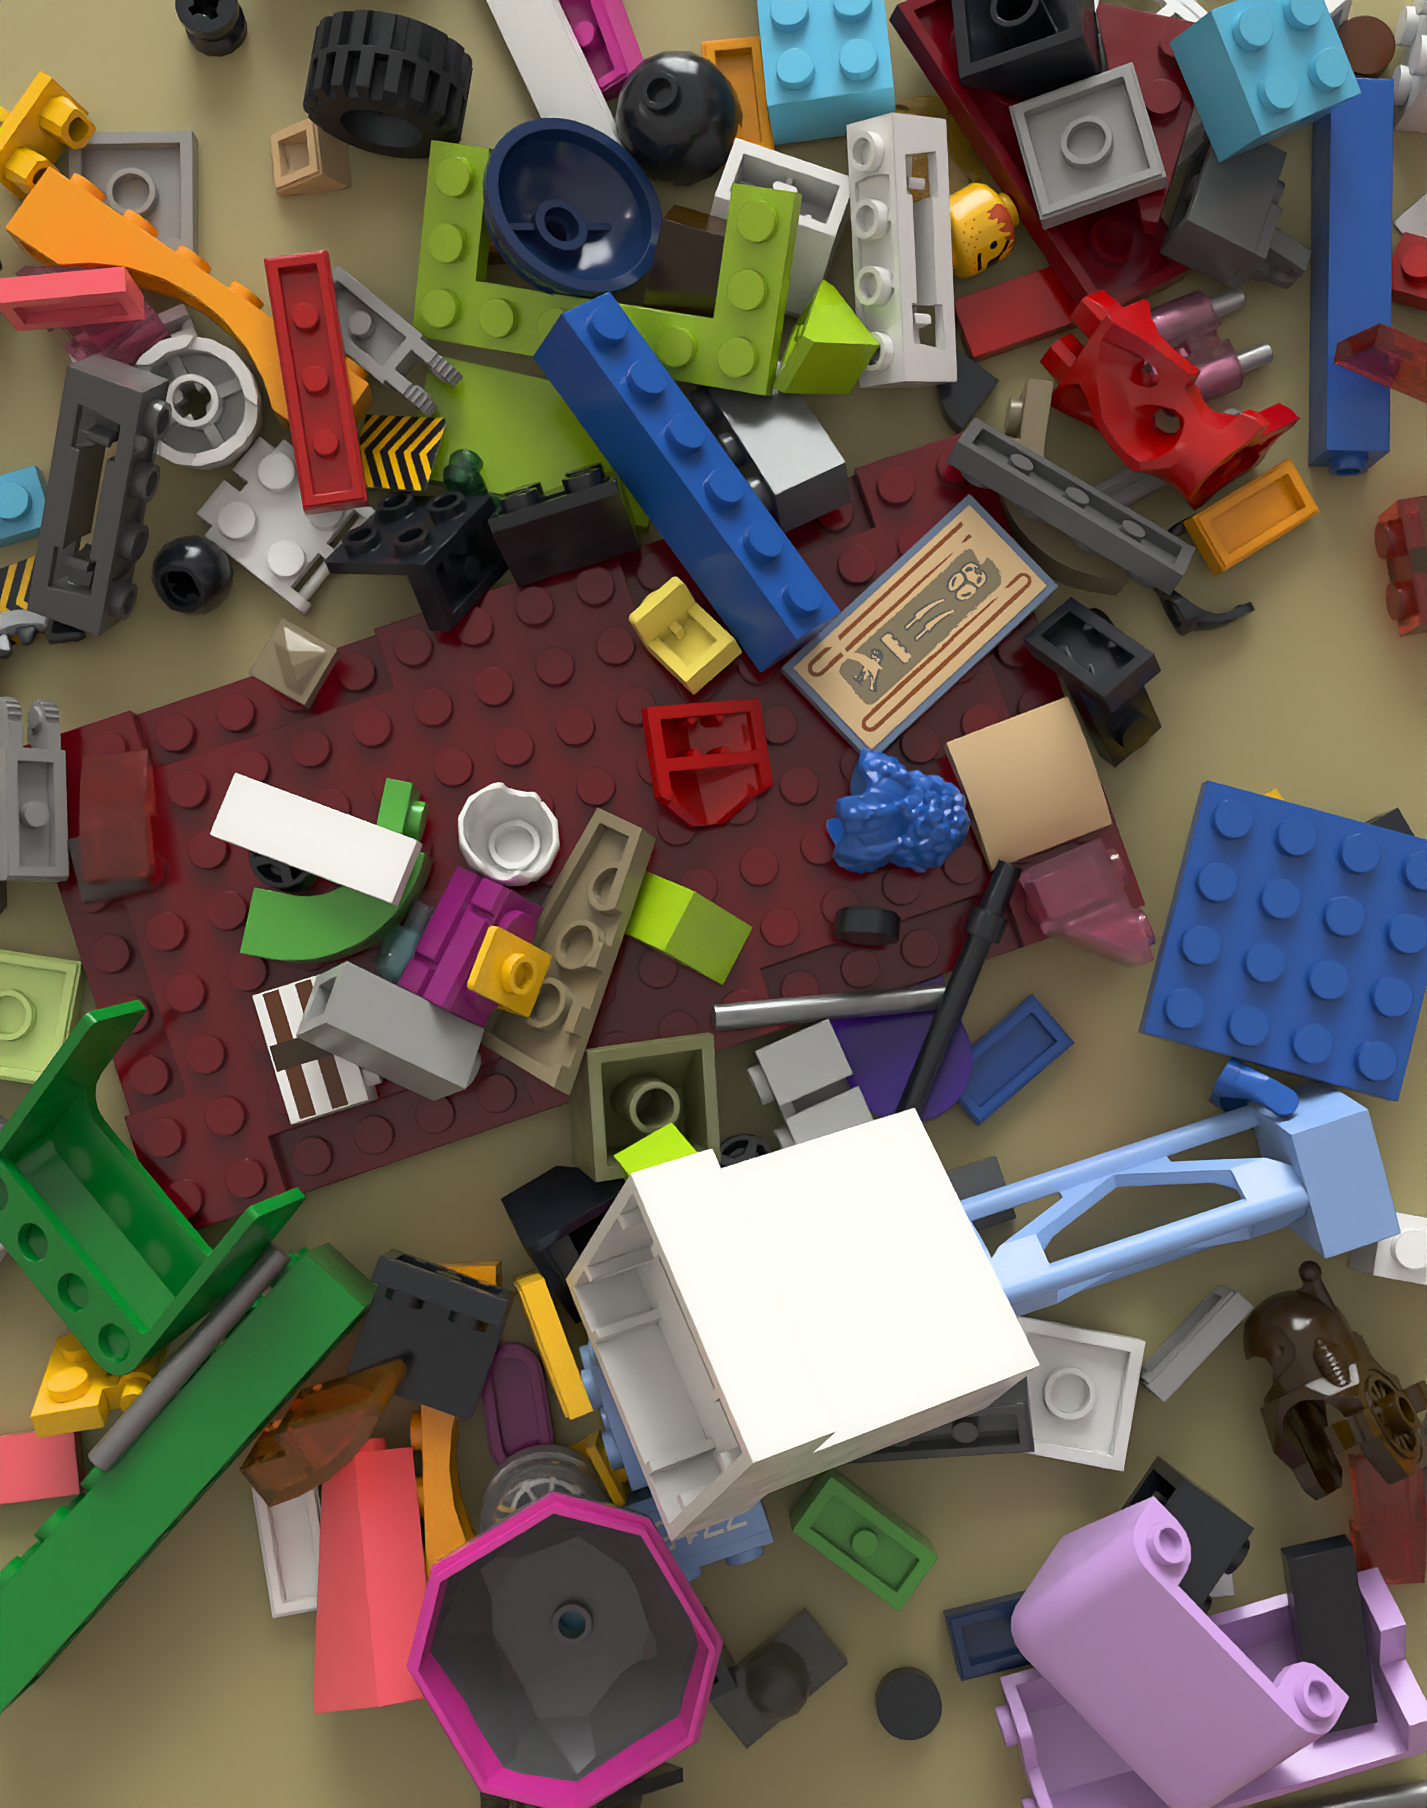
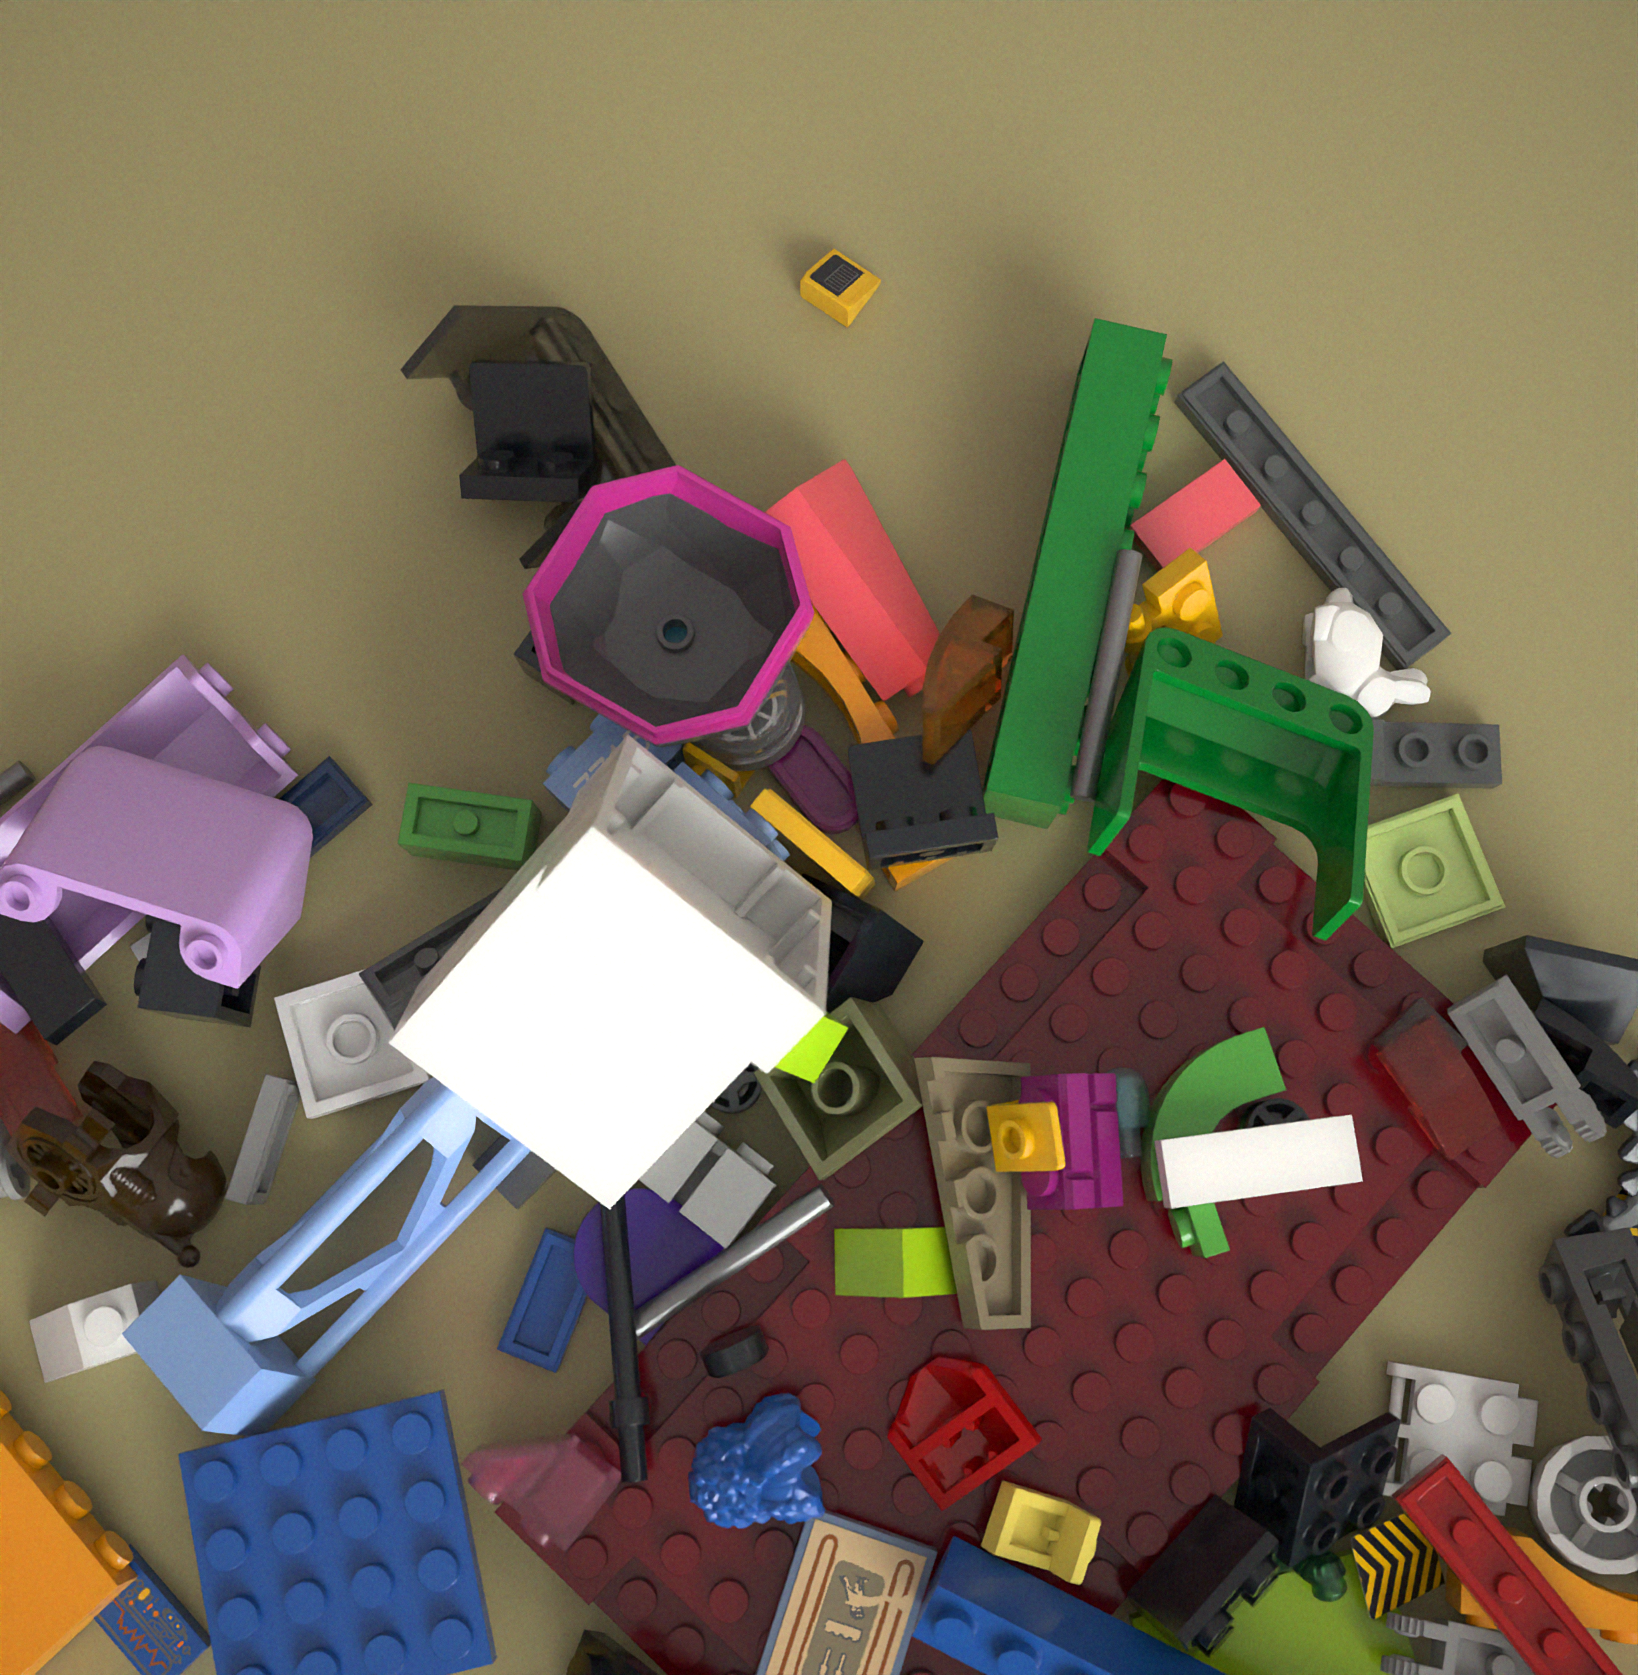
camera: 155 degrees right, 5 degrees down
(192, 575) = (1507, 1341): black piece -> none
(290, 1551) = (935, 570): white tile -> none
(294, 663) = (1370, 1310): dark tan tile -> none
(309, 1077) = (1151, 984): brick -> none
(391, 1032) = (1096, 1029): light grey brick -> none
(508, 835) = (1094, 1258): white hair -> none
(779, 1677) = (481, 681): clear smoke tile -> none
(908, 1703) = (364, 716): black tile -> none
(1029, 783) = (655, 1568): tan slope -> none
(1242, 1084) = (327, 1394): blue cap -> none

